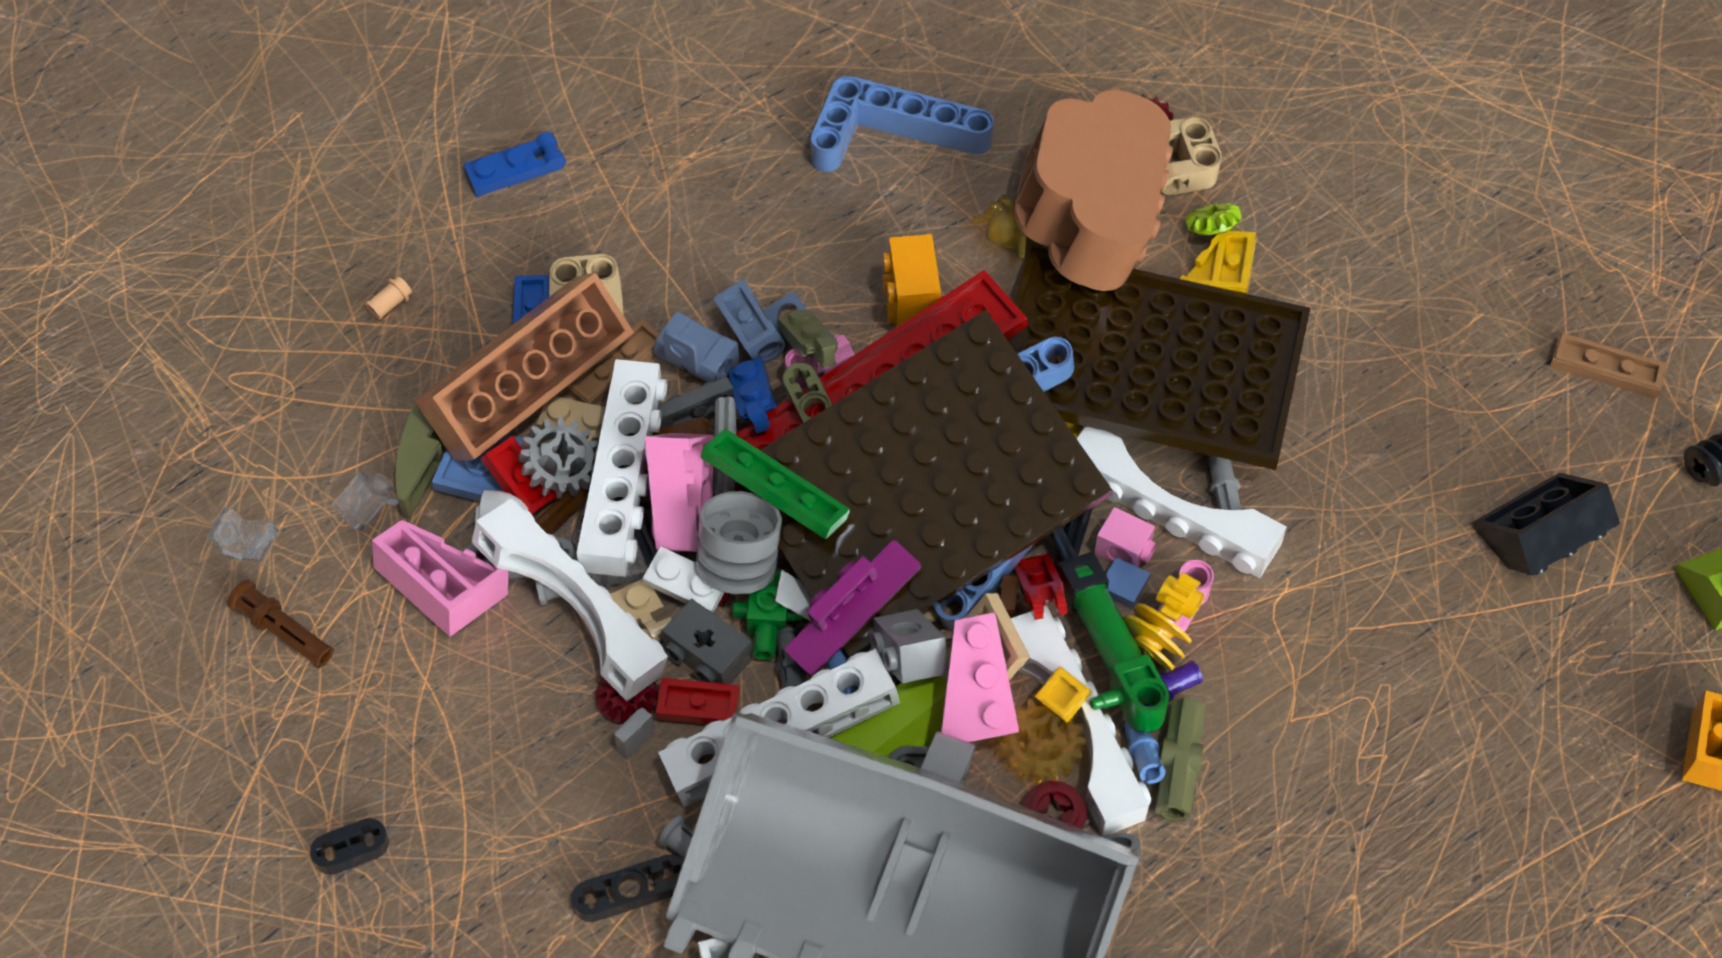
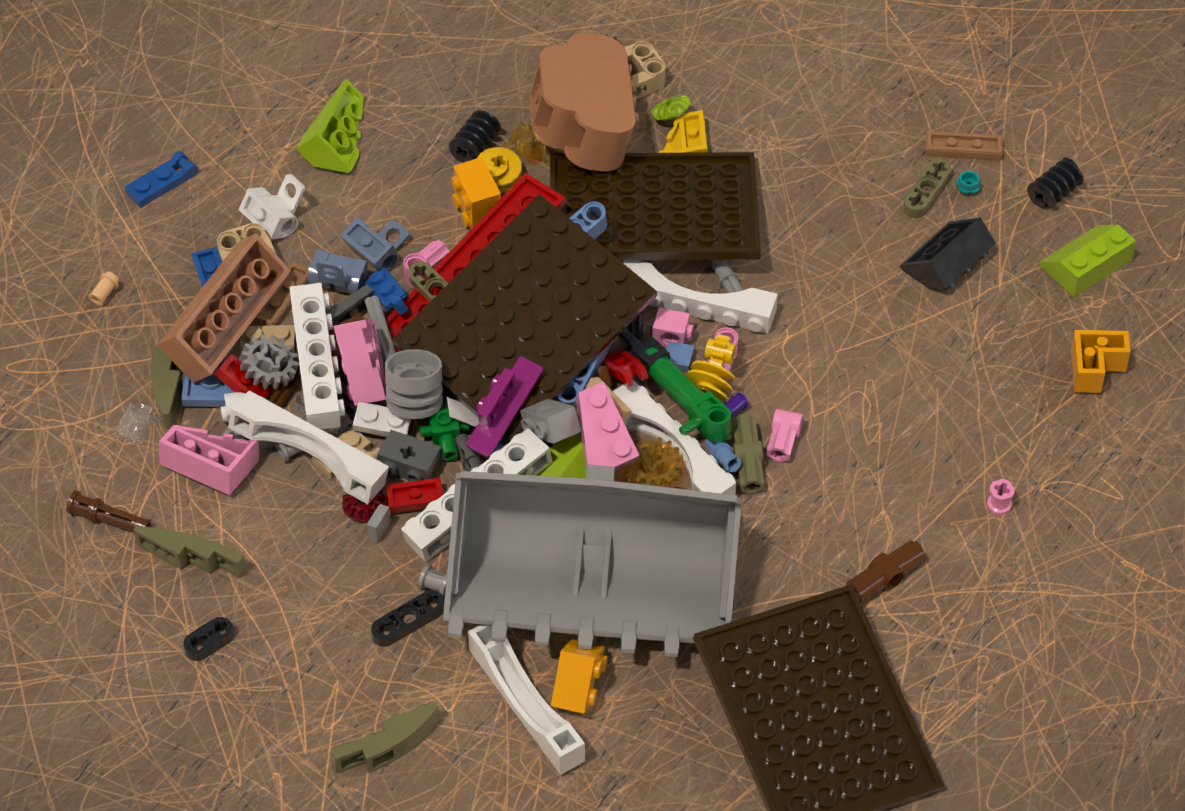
camera: 15 degrees left, 5 degrees down
(241, 537) = (60, 466): clear bracket -> none
(360, 702) = (181, 548): none -> olive slope
(641, 244) = (273, 211): none -> white piece
(754, 154) = (334, 133): none -> lime wedge
(775, 483) = (428, 338): green plate -> none
(808, 337) = (416, 245): olive hinge -> none
(898, 112) = (427, 83): medium blue beam -> none
(936, 199) = (474, 136): none -> black piece
(959, 252) = (503, 166): none -> yellow piece
(1063, 694) = (660, 429): yellow tile -> none
(1243, 734) = (784, 430): none -> bright pink piece
(1539, 430) = (927, 178): none -> olive beam
(1539, 912) = (1000, 498): none -> bright pink bush
(1603, 414) = (968, 182): none -> teal plate

